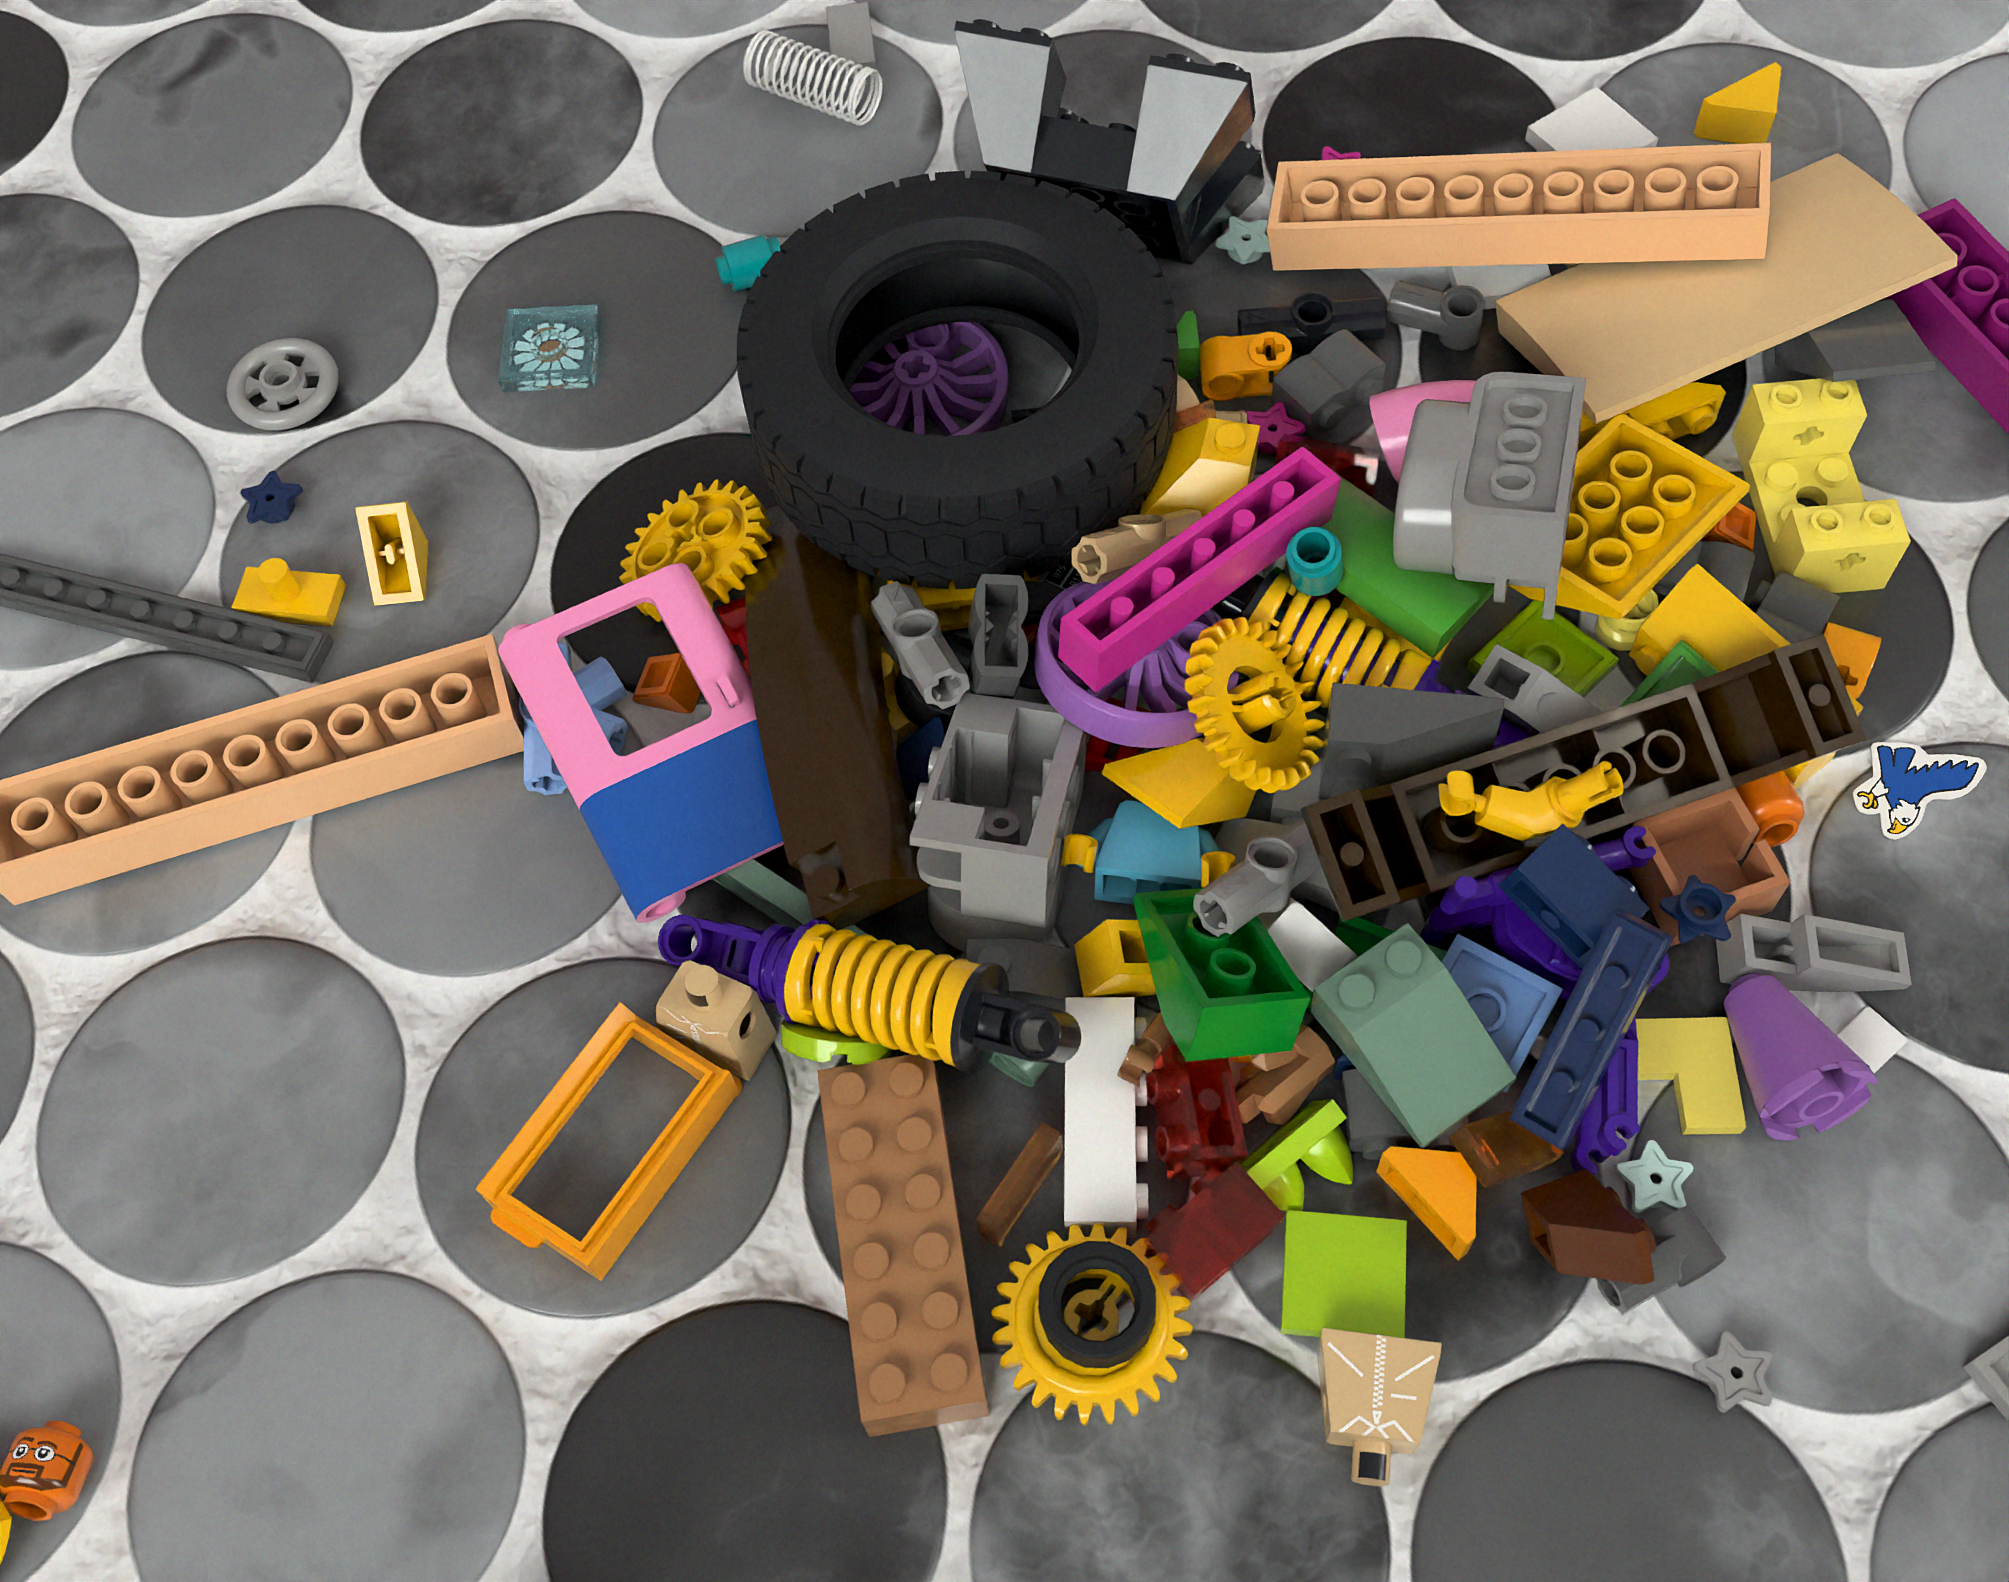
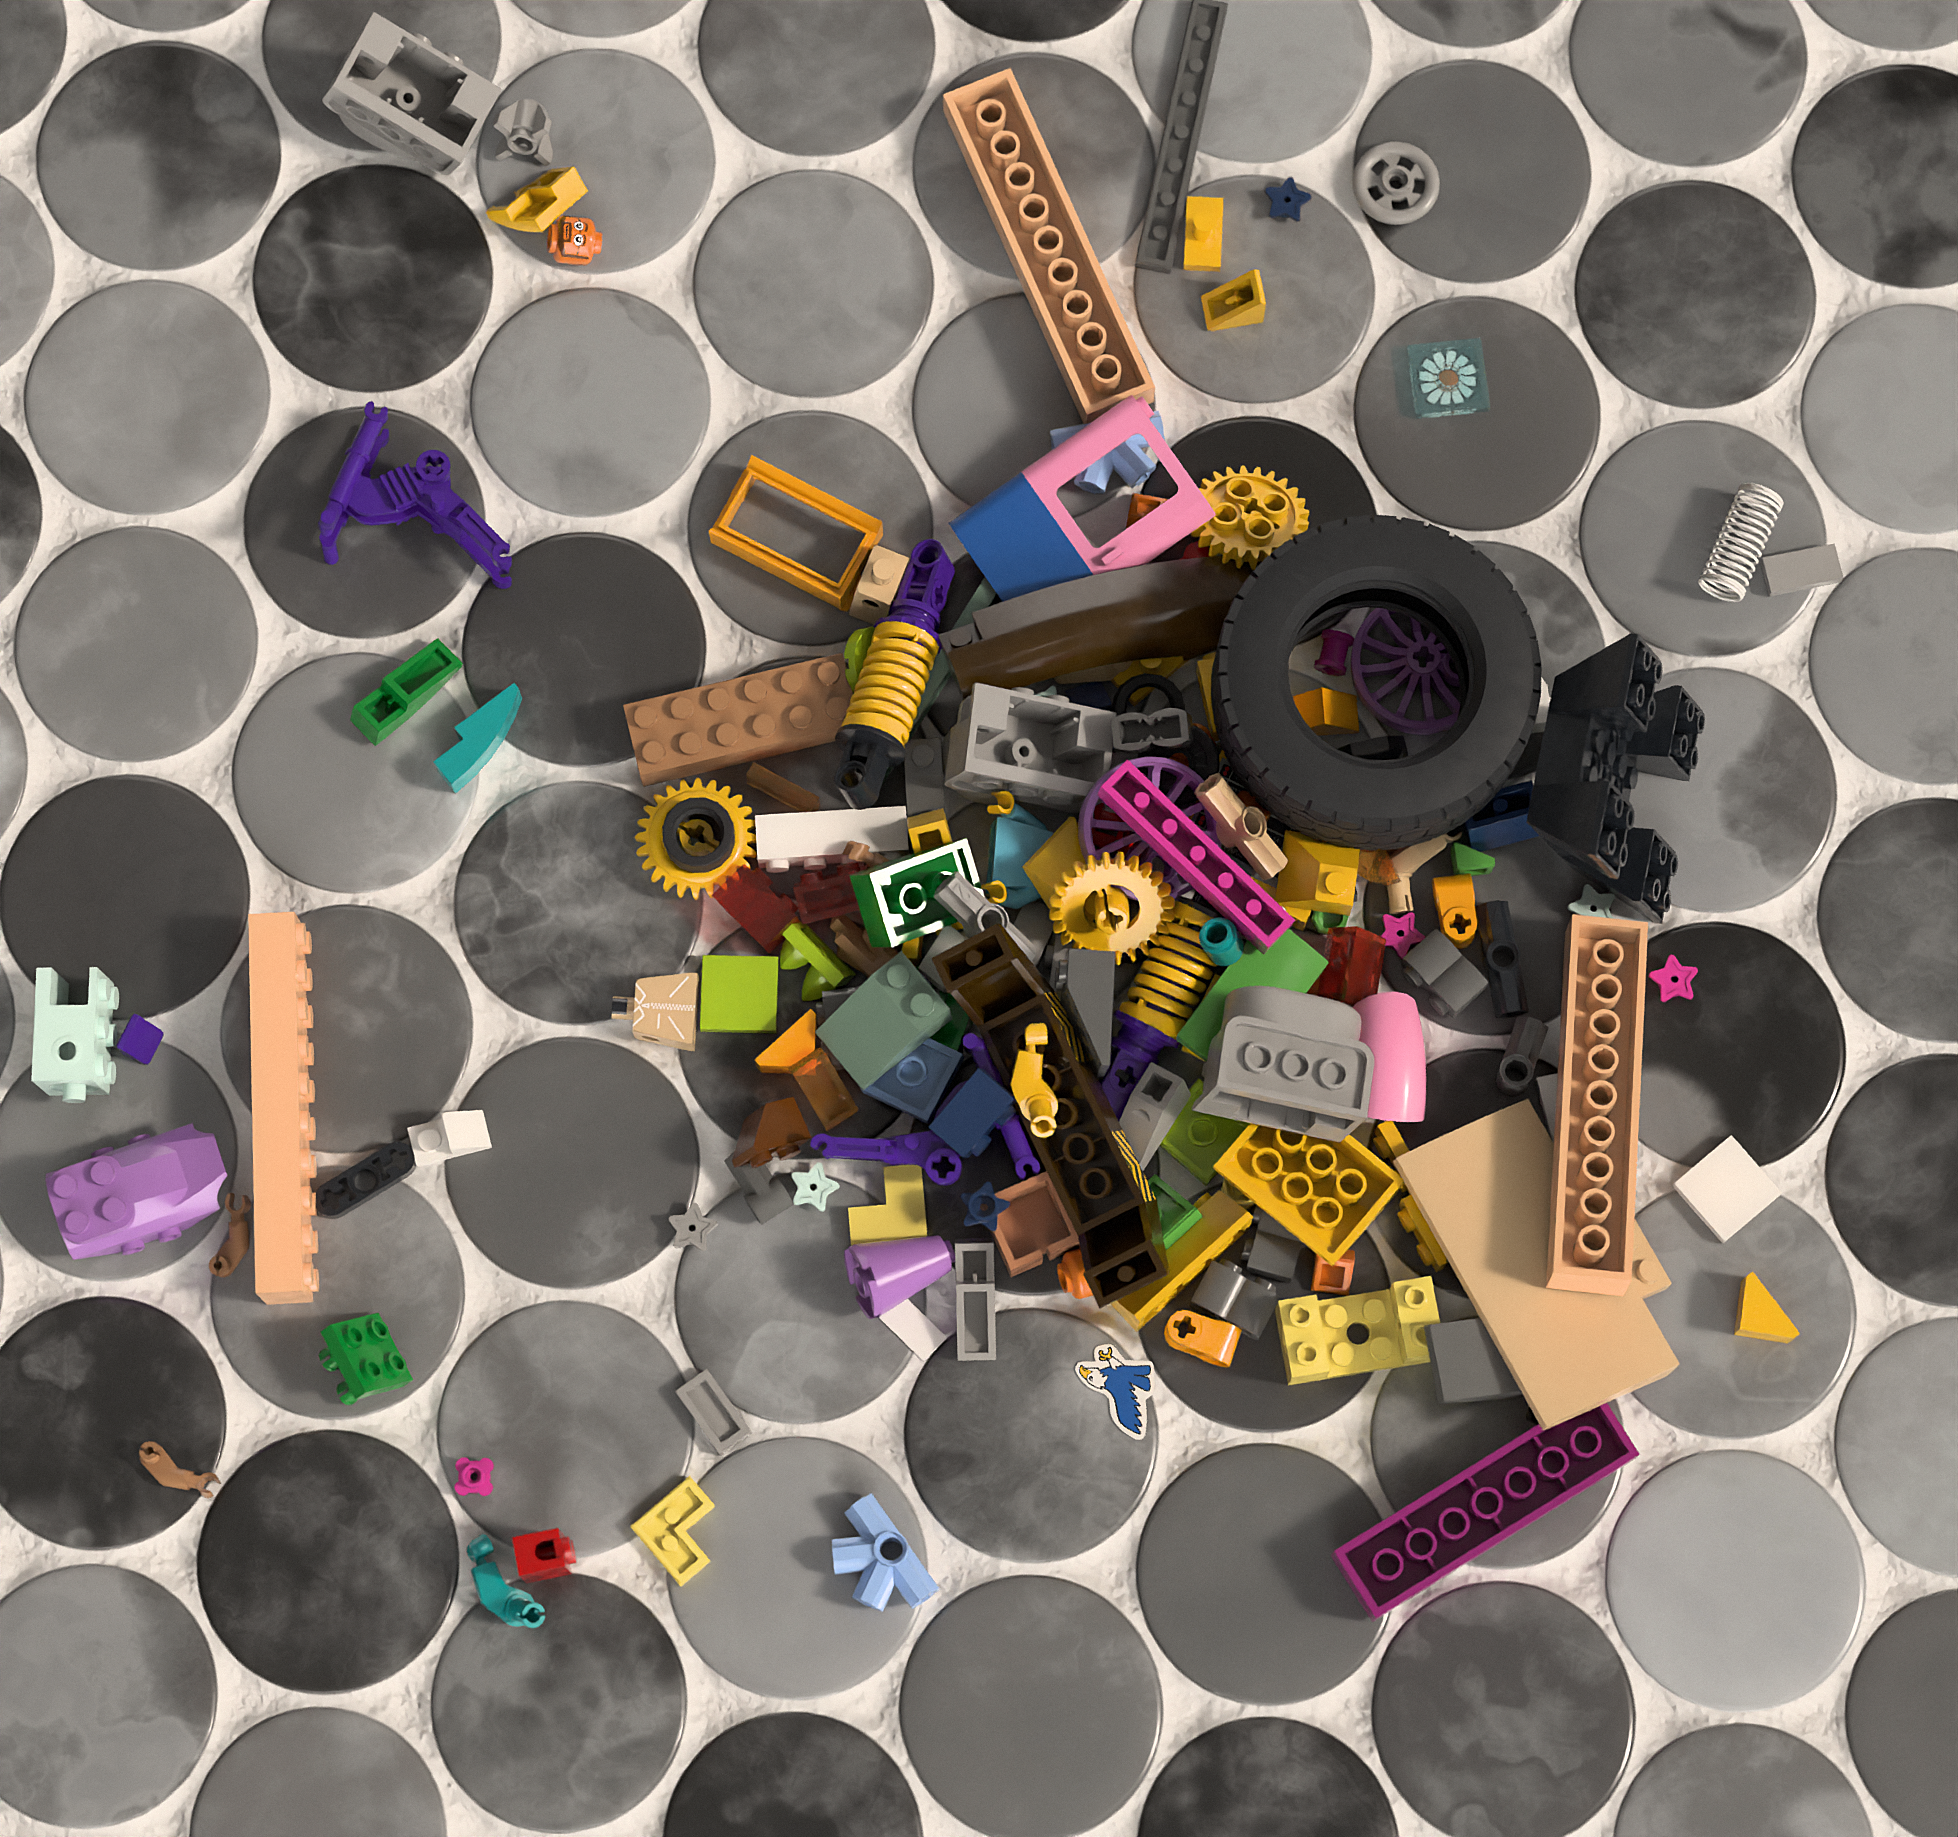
camera: 80 degrees right, 15 degrees up
(744, 260) = (1537, 519): teal brick -> none
(920, 645) = (1136, 688): light grey piece -> none
(1591, 1027) = (885, 1123): dark blue tile -> none

